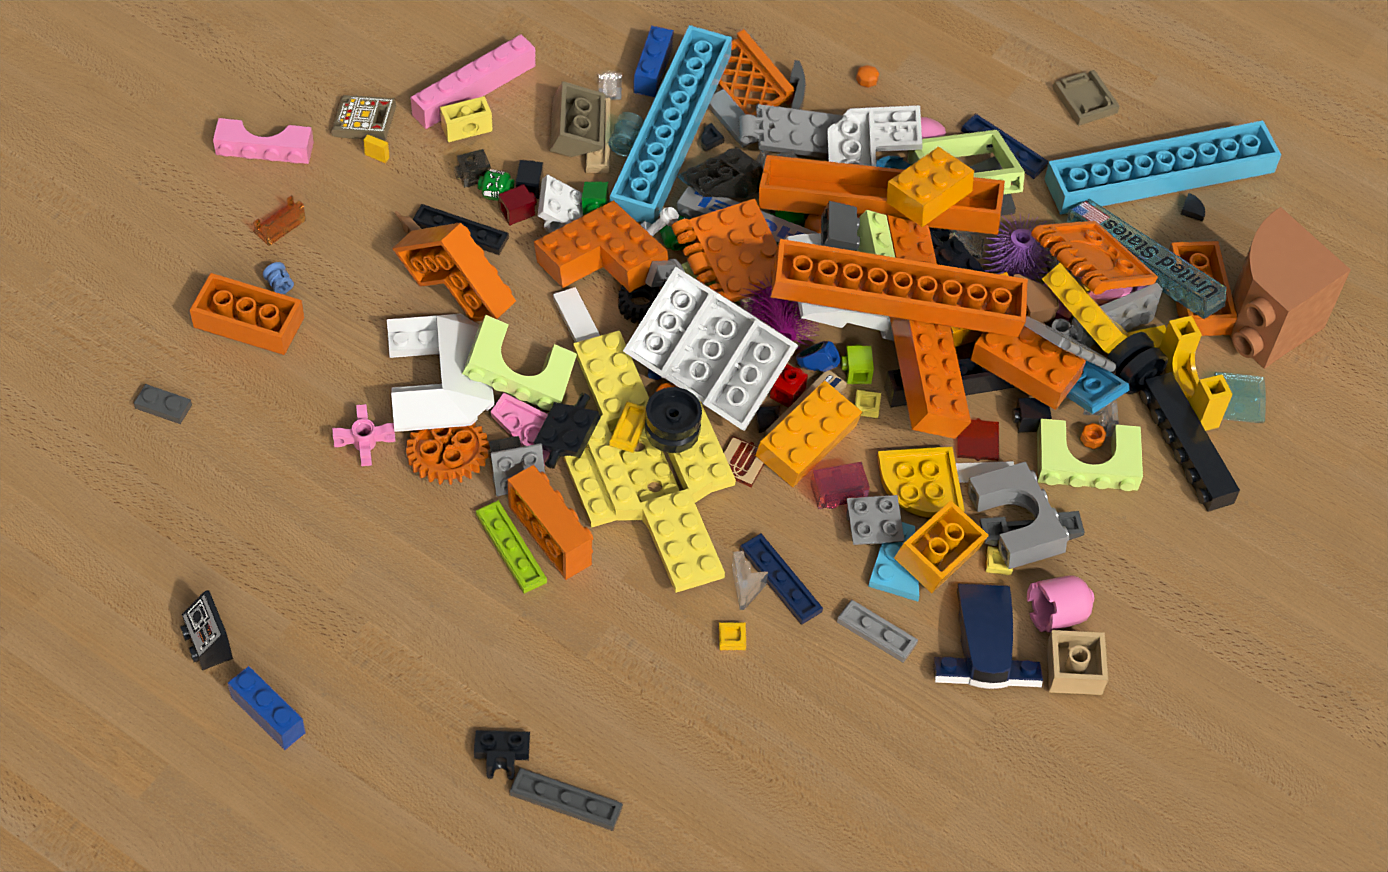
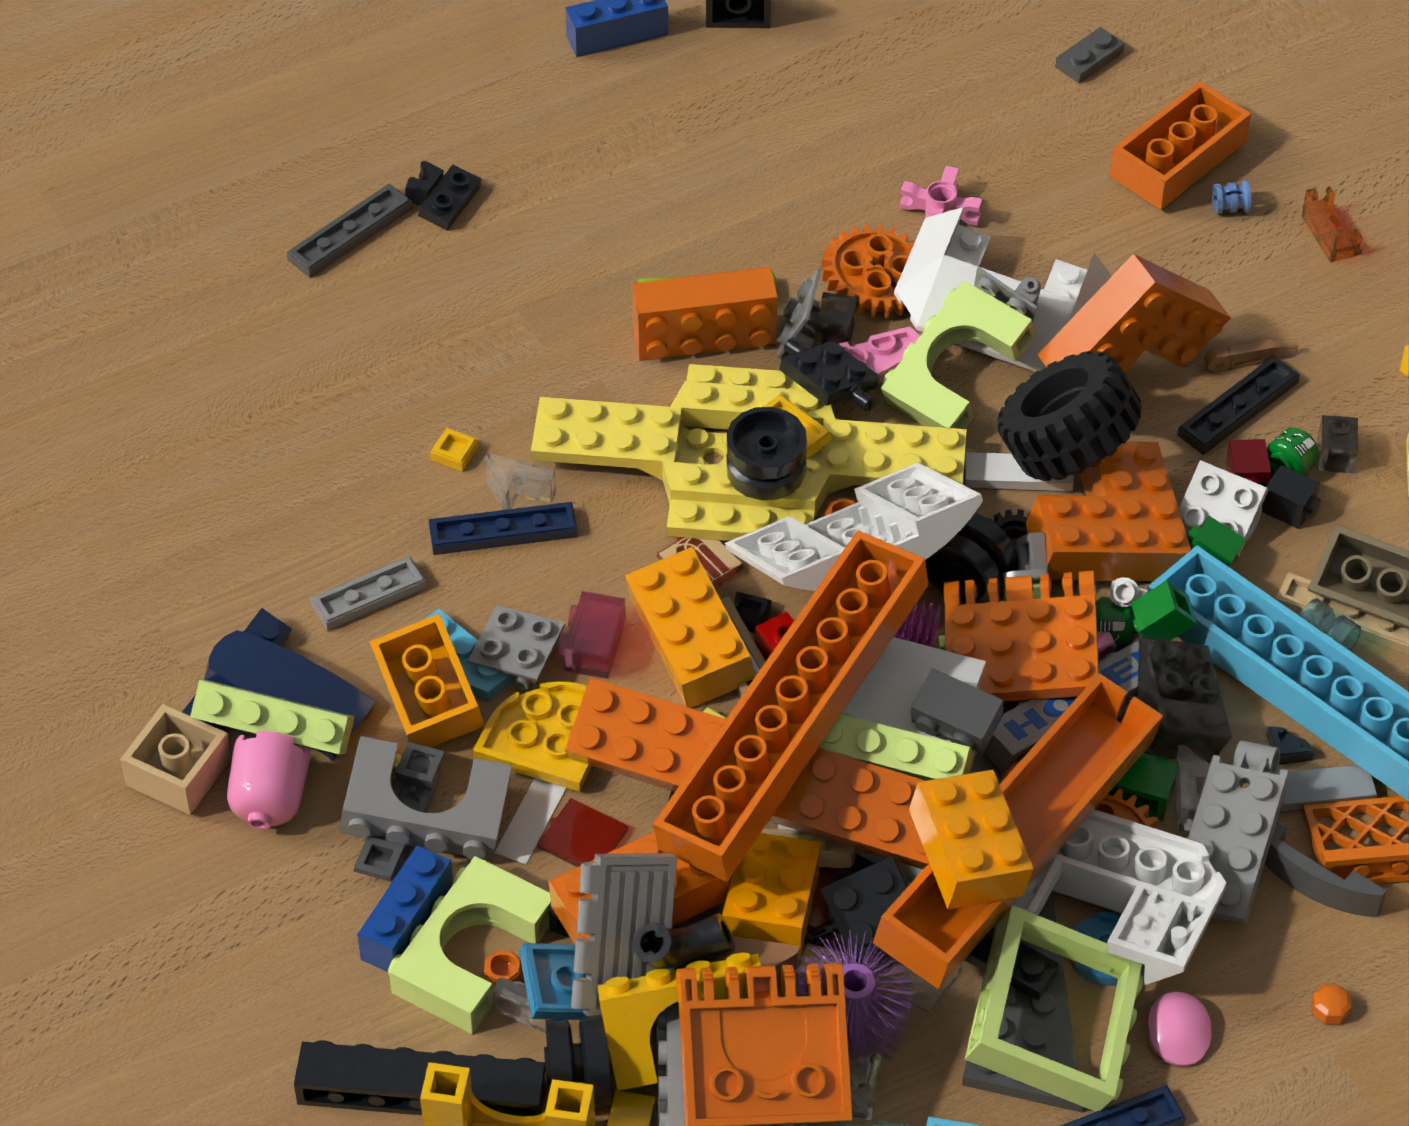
camera: 120 degrees right, 5 degrees down
(465, 332) = (1023, 299): none -> light grey hinge
(521, 280) = (1069, 416): none -> black tyre
(679, 190) = (1163, 612): none -> green brick
(1025, 610) = (262, 712): none -> yellowish green brick
(1061, 317) = (683, 945): none -> black cylinder
(1092, 494) = (404, 907): none -> blue brick

